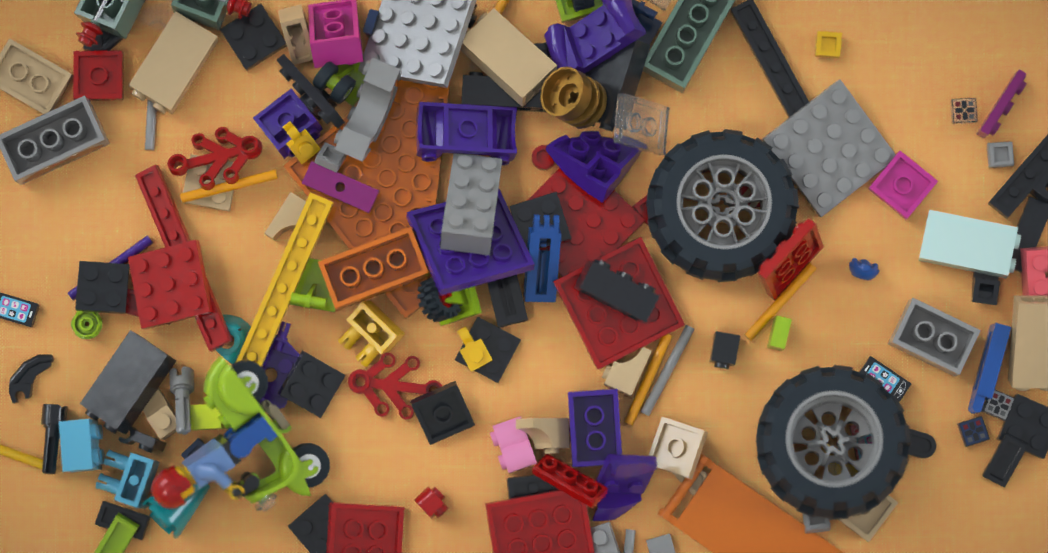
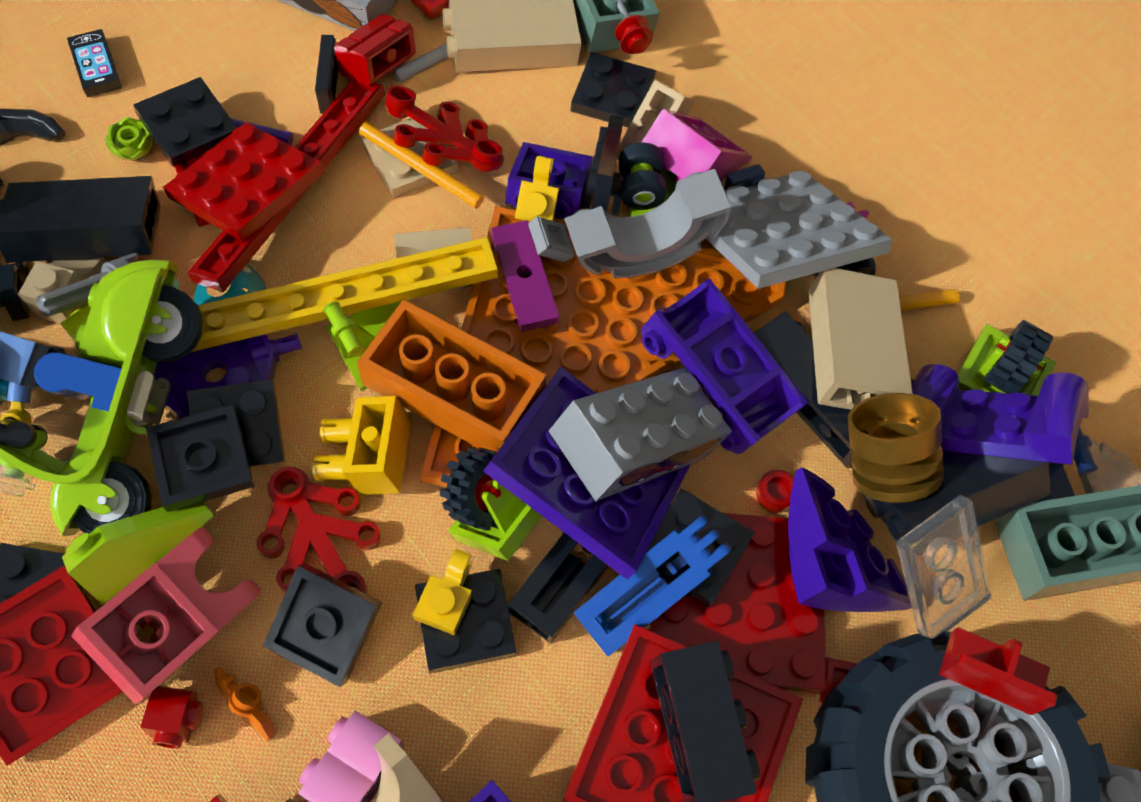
camera: 40 degrees right, 20 degrees down
(123, 188) = (326, 73): none -> black tile
(129, 151) = (375, 49): none -> red brick
(322, 411) = (199, 458): none -> black plate
(341, 468) = (127, 547): none -> lime slope
(386, 472) = (173, 606): none -> coral brick
(448, 469) = (245, 702): none -> orange piece
(695, 157) = (997, 671): none -> red panel

